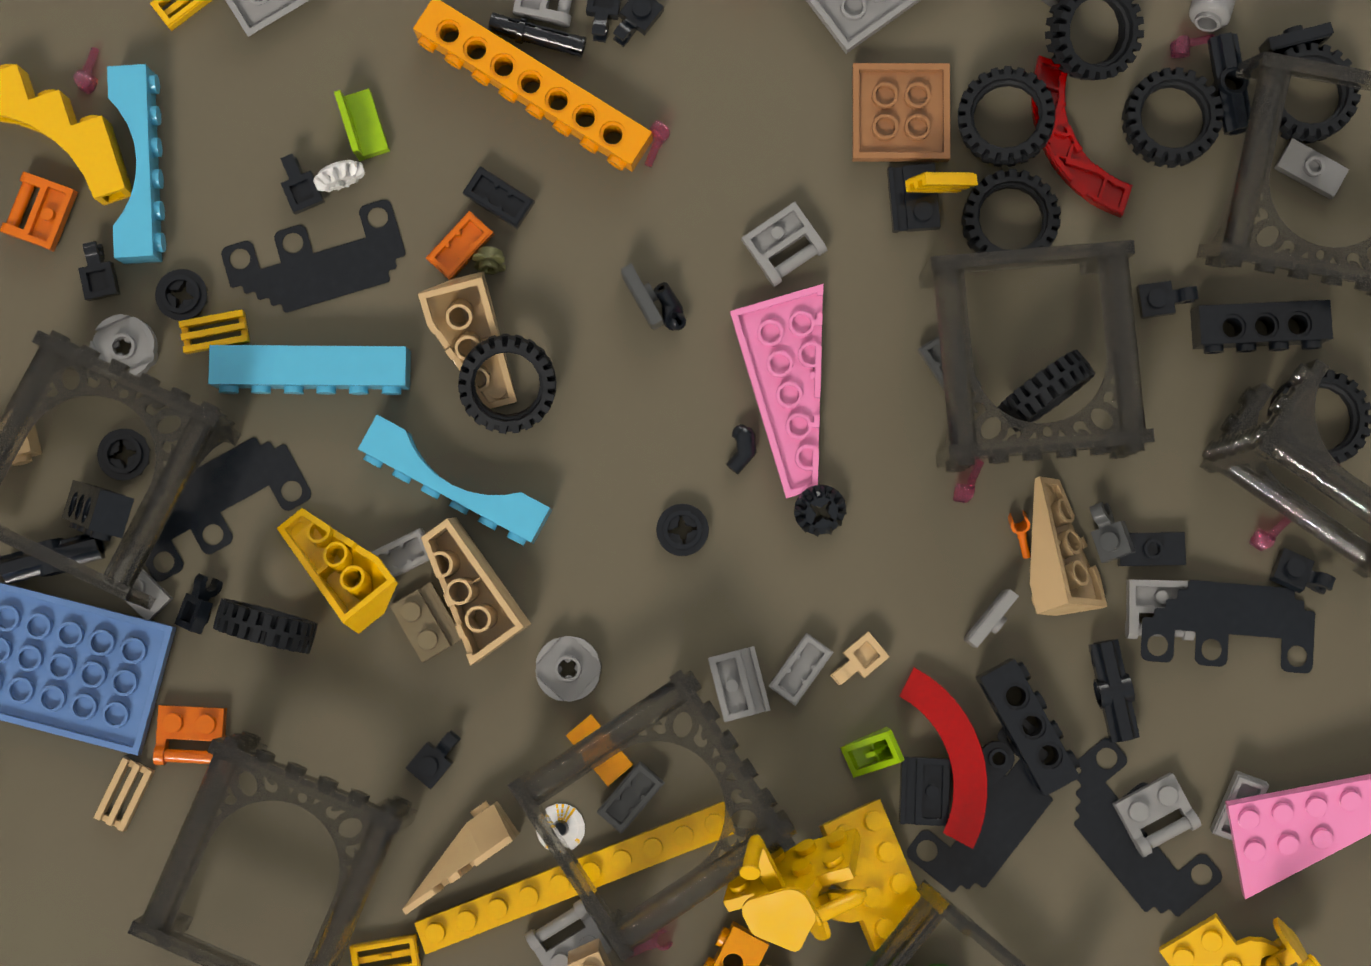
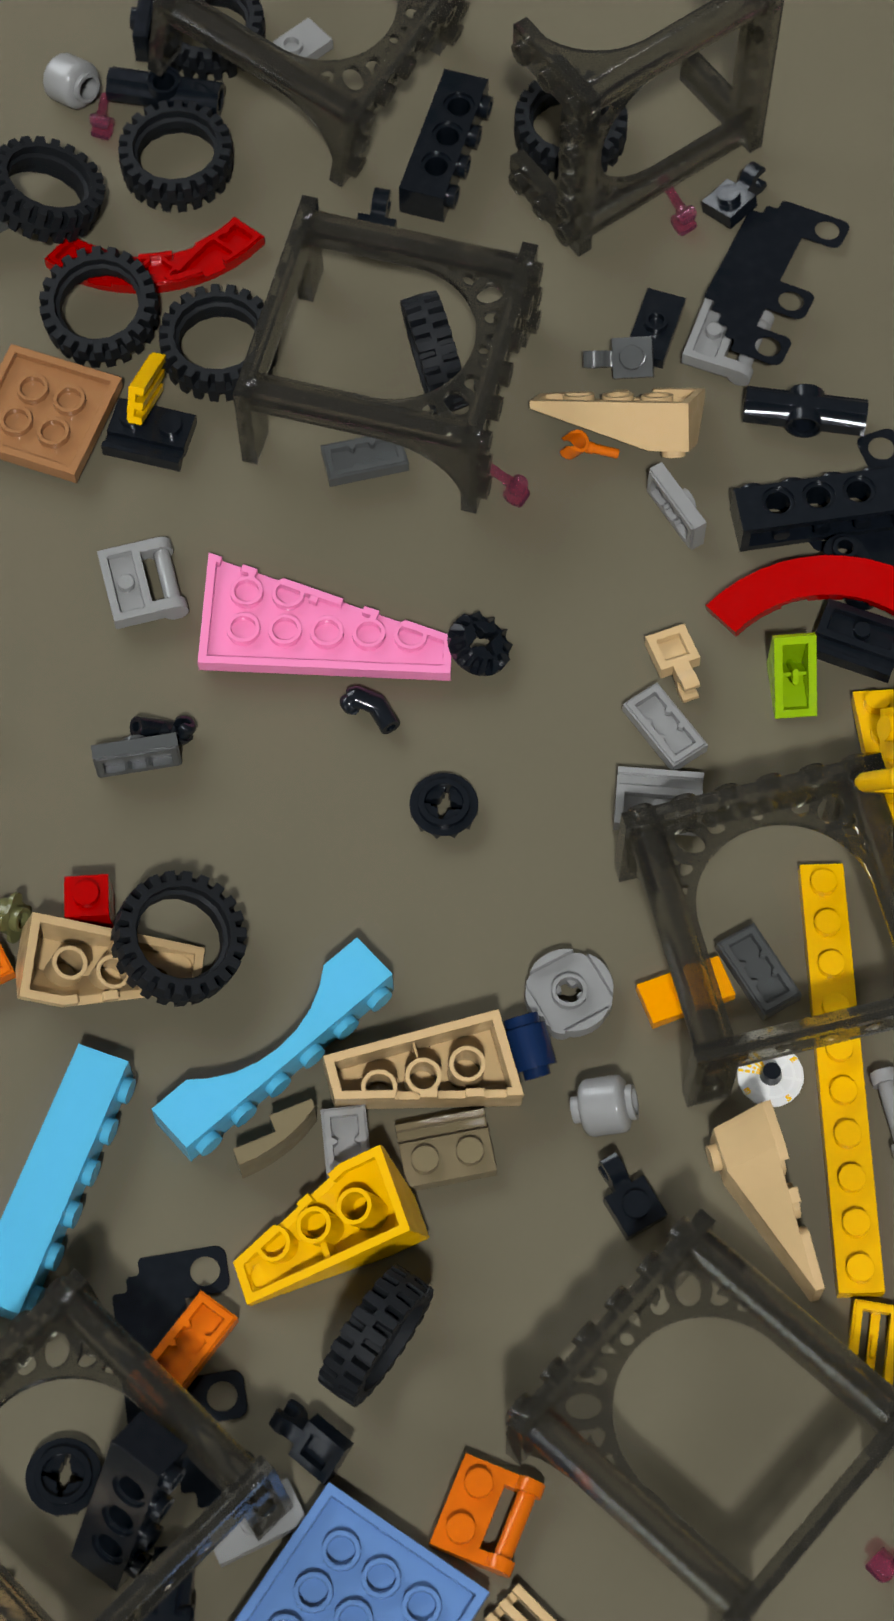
camera: 75 degrees left, 20 degrees down
(234, 502) = (194, 1338): none -> orange plate
(398, 508) = (288, 1130): none -> dark tan slope
(491, 722) = (605, 1105): none -> light grey head
(514, 310) = (89, 899): none -> red brick
(515, 654) = (530, 1045): none -> dark blue brick

